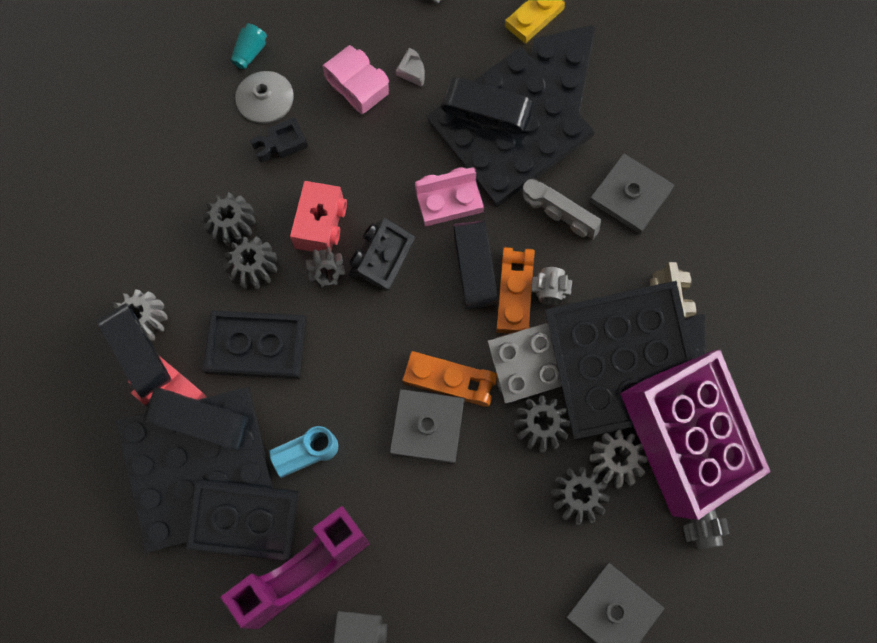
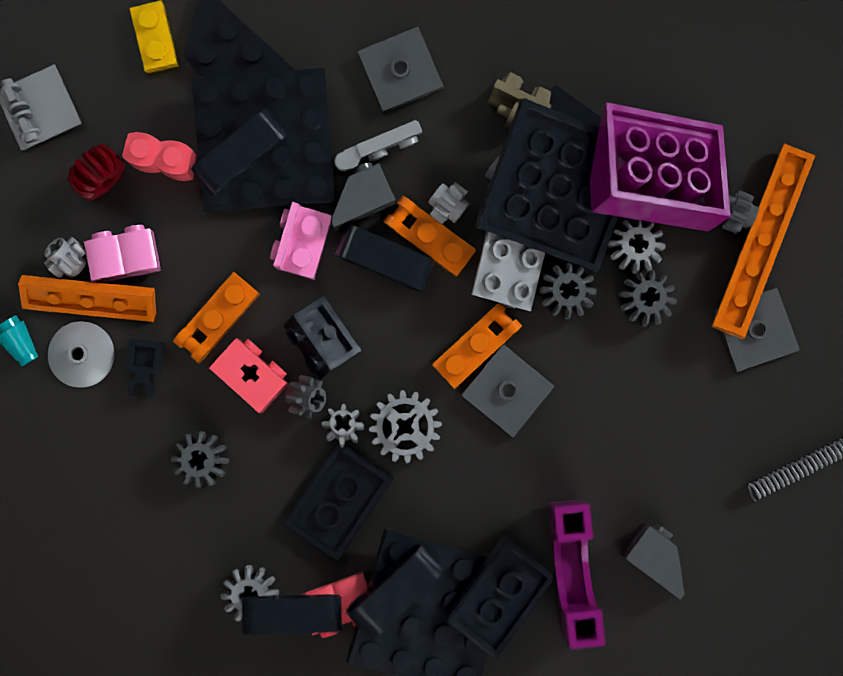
camera: 60 degrees left, 15 degrees up
(239, 267) = (253, 473): dark grey gear -> none
(301, 453) = (467, 515): medium azure piece -> none
(309, 75) = (87, 298): none -> orange plate
(315, 300) = (341, 434): none -> light grey gear
(329, 41) = (65, 257): none -> light grey gear
(333, 356) = (393, 416): none -> light grey gear
(350, 171) = (217, 316): none -> orange plate
(406, 25) = (95, 172): none -> dark red gear
(411, 68) = (139, 193): light grey tile -> none
(445, 57) = (153, 156): none -> coral brick
(512, 219) = (363, 196): none -> dark grey slope
(696, 568) = (763, 241): none -> orange plate

